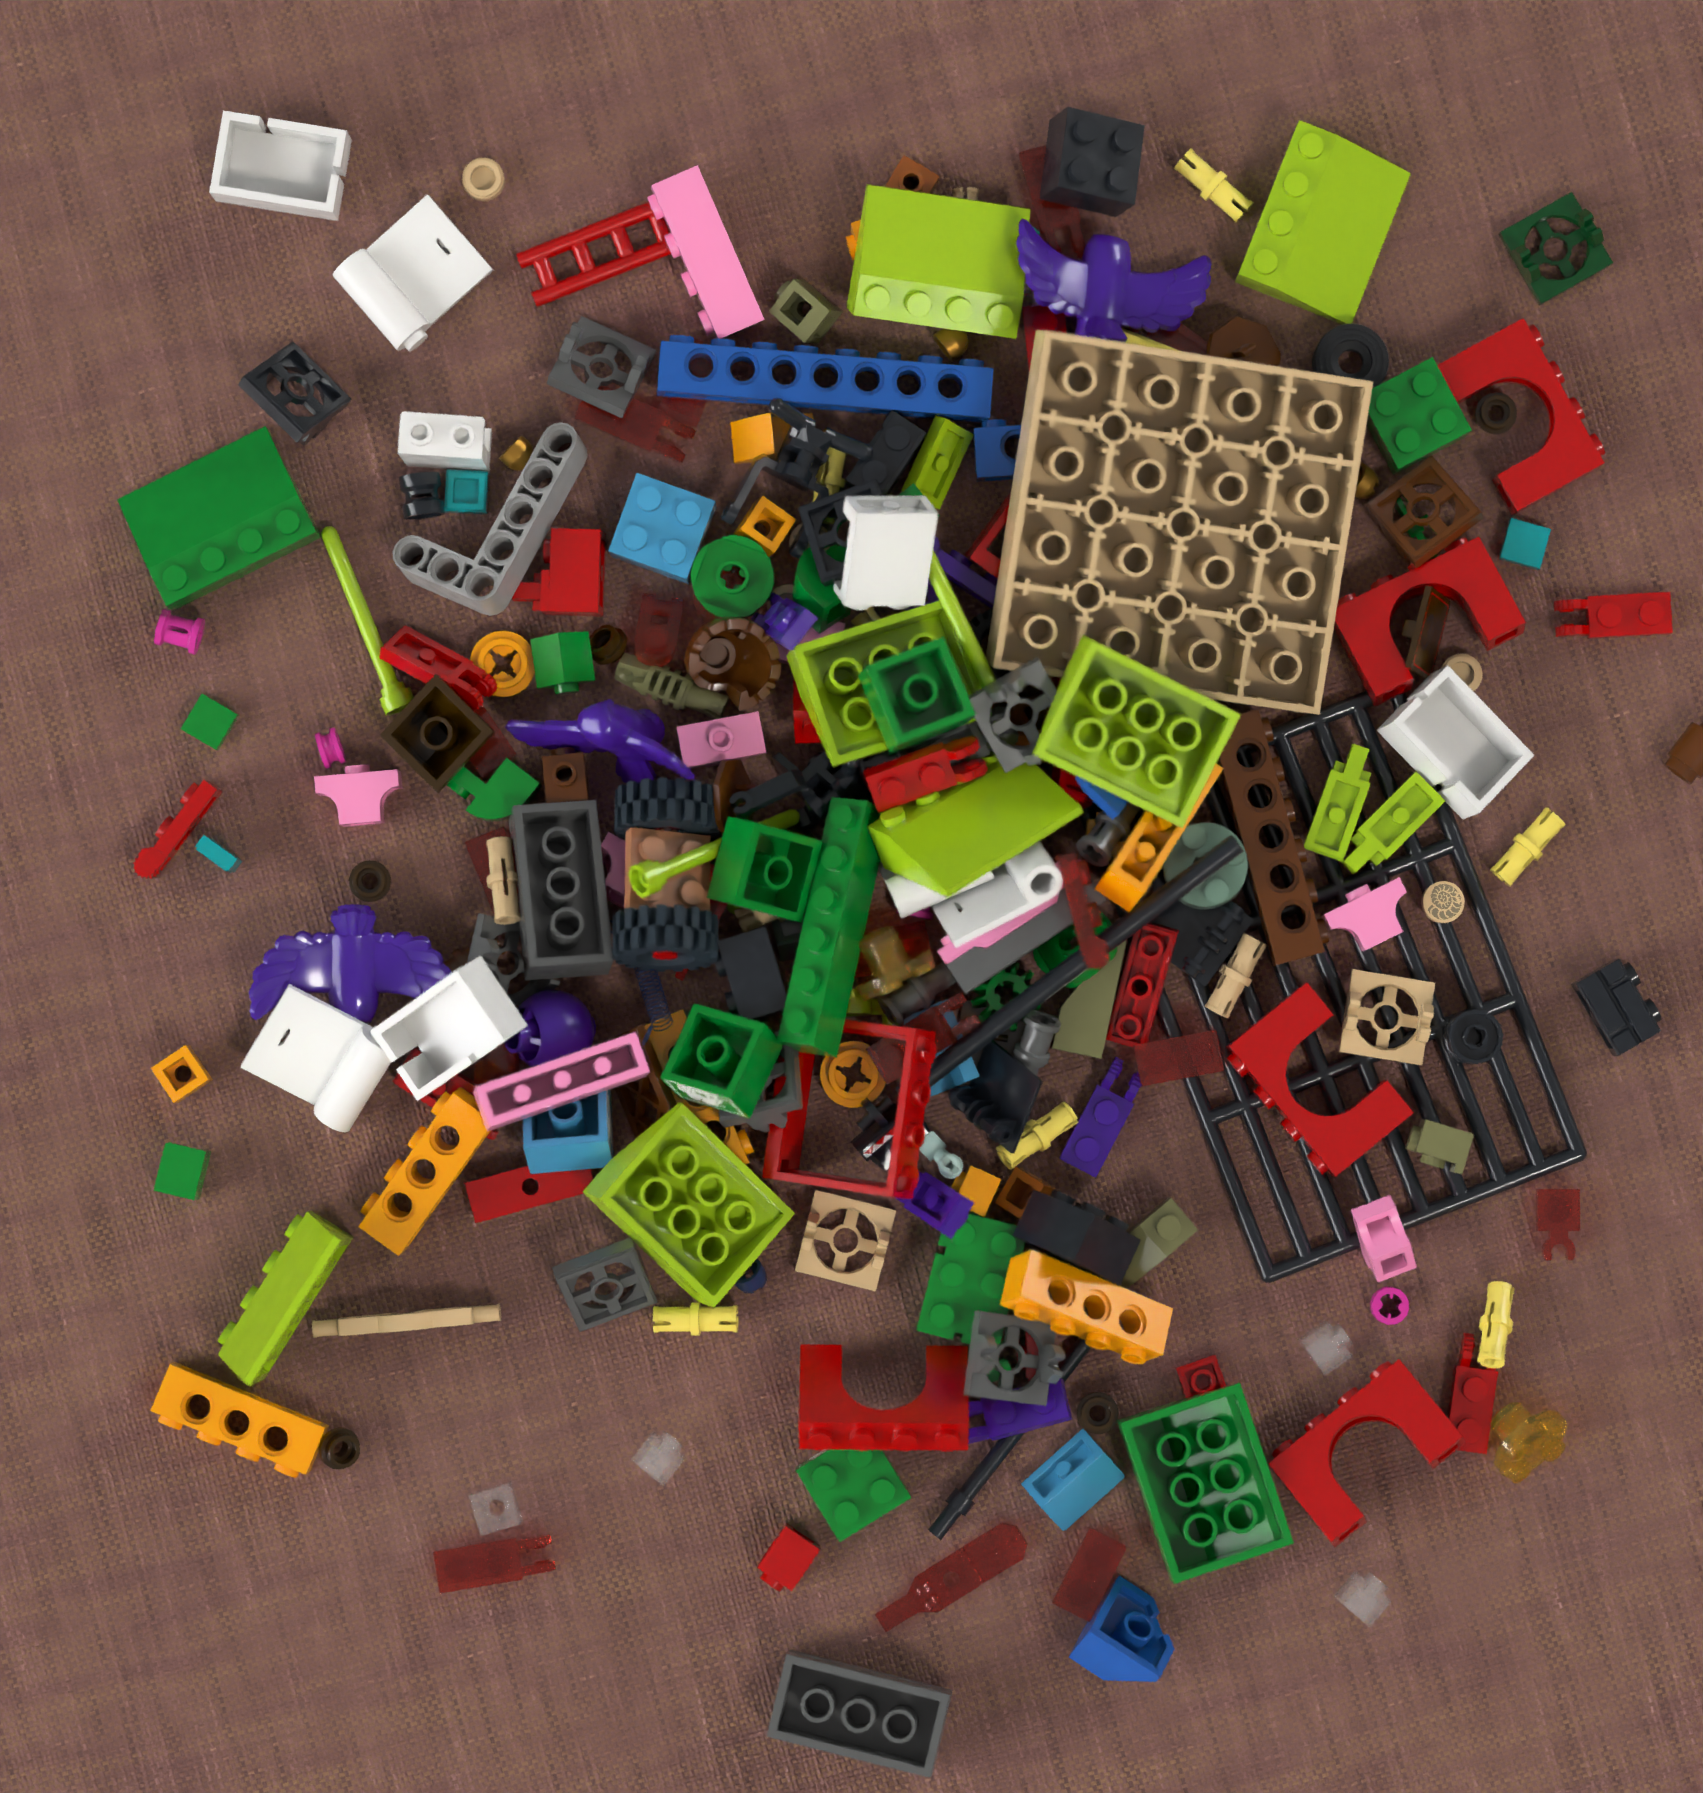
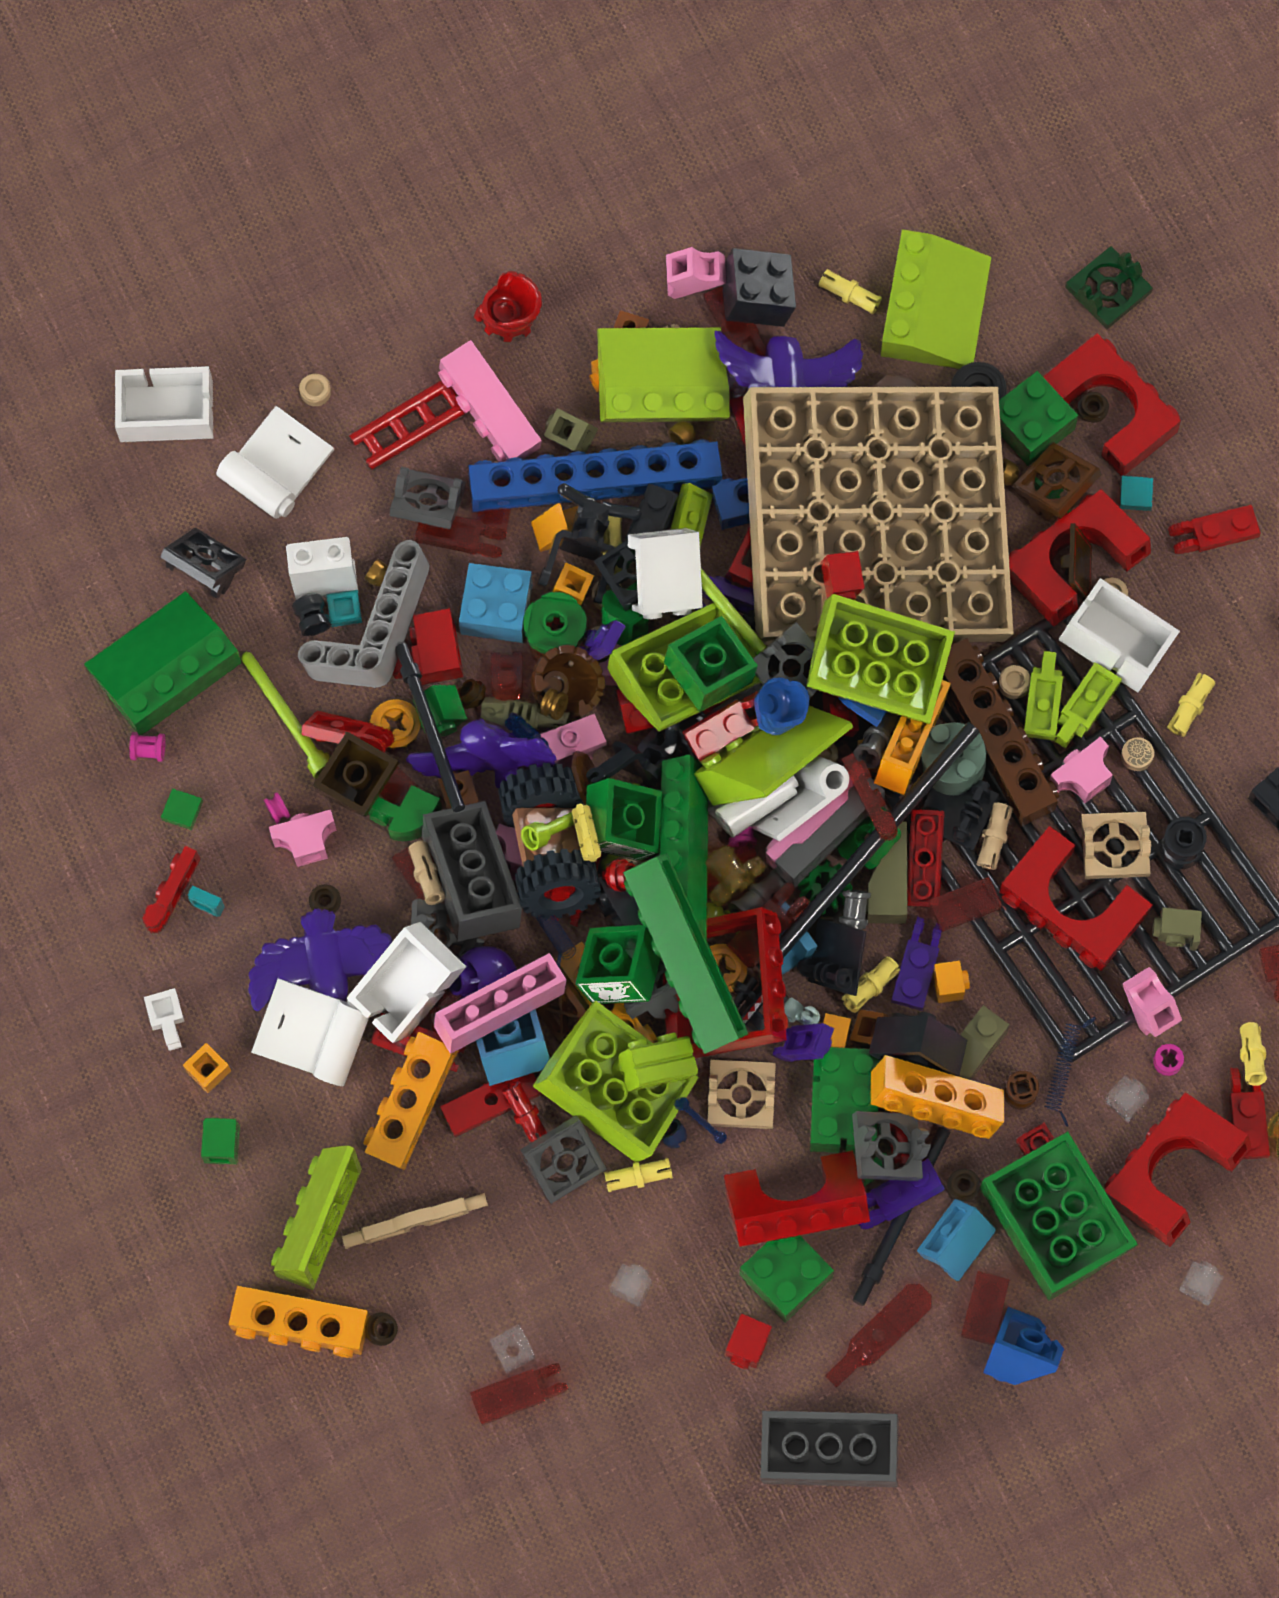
camera: 10 degrees left, 15 degrees down
(142, 988) = (164, 1013): none -> white plate
(533, 611) = (411, 675): none -> black bar
(569, 1216) = (524, 1111): none -> red pin
(665, 722) = (521, 729): none -> clear blue axle
(709, 687) = (554, 704): none -> pearl gold bush
(712, 885) = (586, 833): none -> light yellow axle
(745, 947) = (614, 874): none -> red plate
(745, 1196) = (657, 1063): none -> lime brick
(760, 119) = (510, 306): none -> red hair
(767, 1247) = (683, 1104): none -> clear blue hinge
(804, 1074) = (684, 953): none -> green brick
(995, 769) = (781, 705): none -> blue hair
(1013, 122) = (694, 271): none -> bright pink brick
(1112, 609) = (843, 574): none -> red brick
(1138, 1151) = (950, 981): none -> light orange plate
(1191, 1305) = (1019, 1096): none -> reddish brown wheel
(1240, 1348) = (1083, 1026): none -> dark blue piece
(1307, 772) = (1014, 682): none -> tan tile

